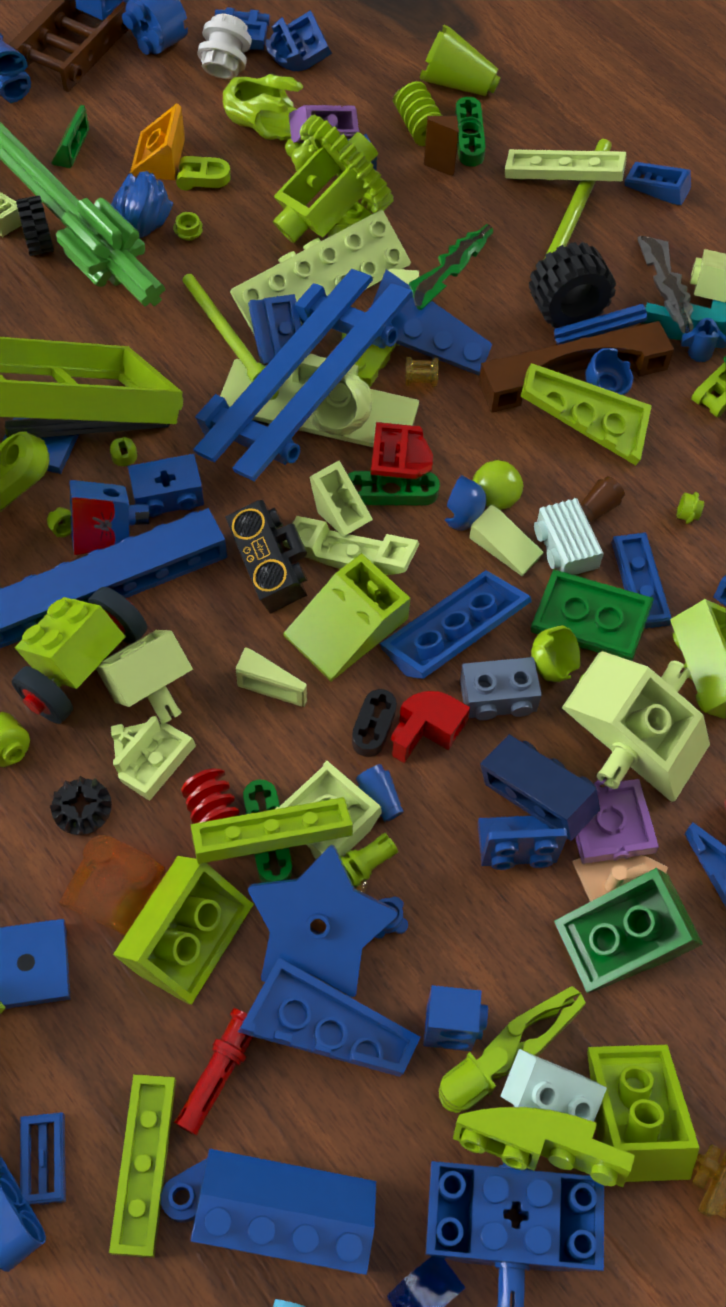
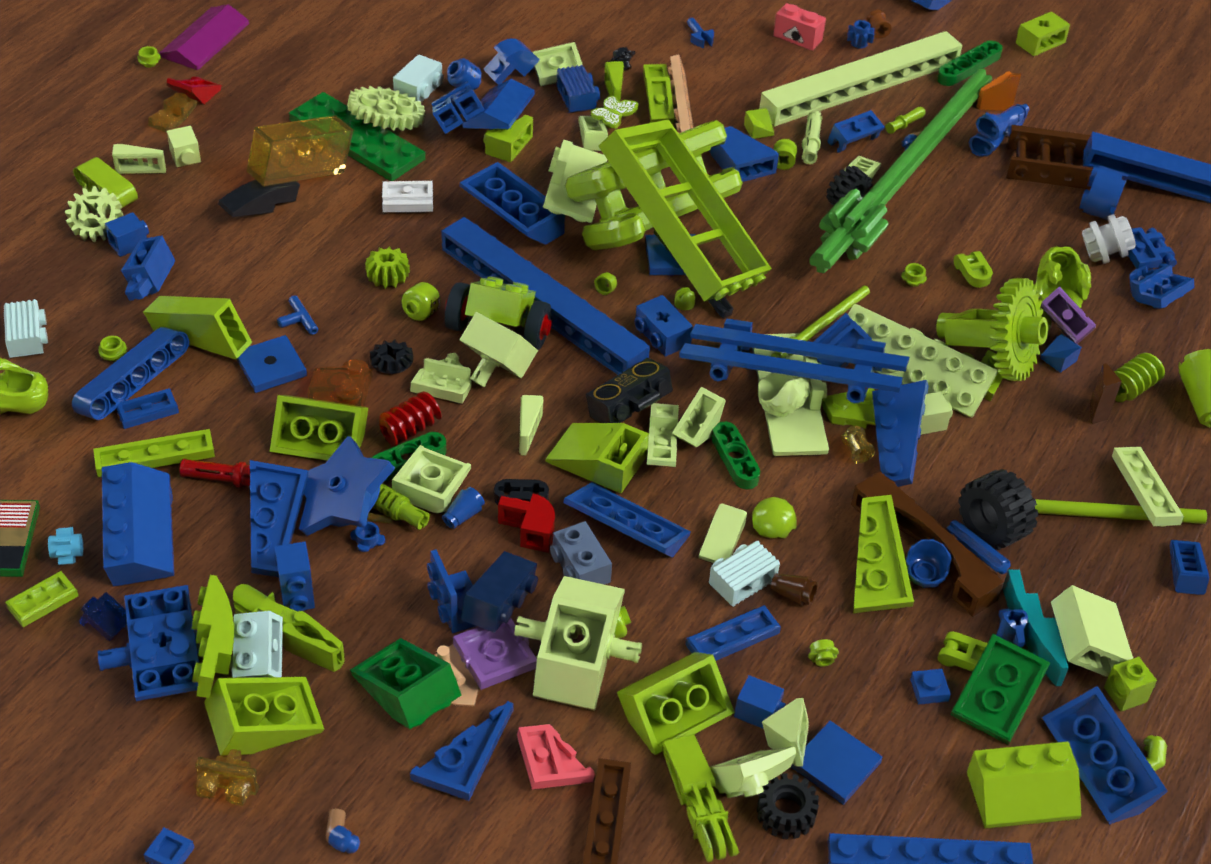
camera: 70 degrees right, 15 degrees down
(72, 139) = (955, 189): green slope -> none
(101, 515) = (614, 291): torso -> none
(143, 202) = (912, 240): blue hair -> none
(161, 146) = (987, 239): light orange slope -> none
(271, 830) = (397, 437): lime plate -> none
(400, 451) = (764, 445): red slope -> none
(430, 284) = (973, 430): green sword -> none
(464, 139) = (1138, 427): green beam -> none
(466, 502) = (737, 490): blue hair -> none
(556, 653) = (628, 576): lime hair -> none
(595, 612) = (678, 605): green tile -> none
(668, 283) = (1056, 582): flat silver sword -> none

